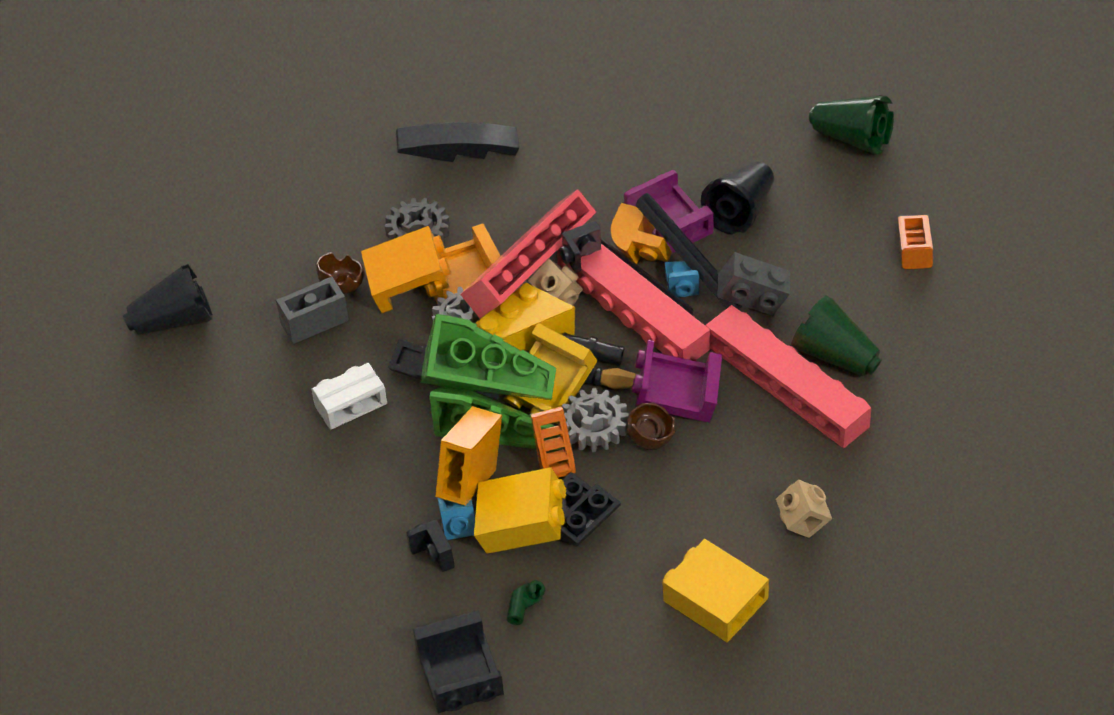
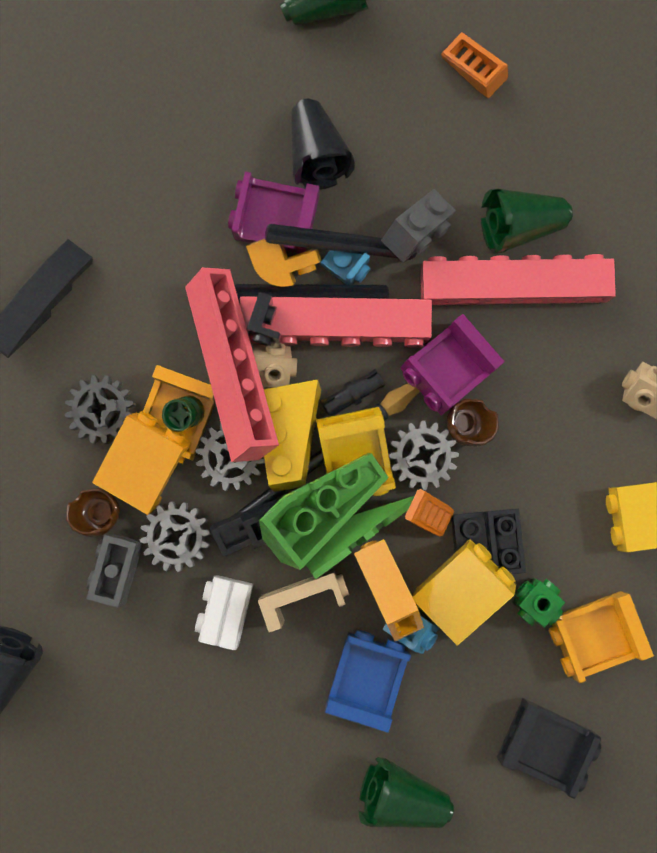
camera: 50 degrees left, 35 degrees up
(320, 592) = (401, 799): none -> dark green cone
(375, 329) = (167, 523): none -> light grey gear
(384, 517) = (367, 680): none -> blue panel
(407, 413) = (272, 601): none -> tan panel
(432, 539) = (433, 673): black bracket -> none
(465, 262) = (176, 416): none -> dark green wheel
(523, 598) = (530, 648): dark green arm -> none
(563, 566) = (528, 596): none -> green brick
(579, 631) = (600, 636): none -> light orange panel

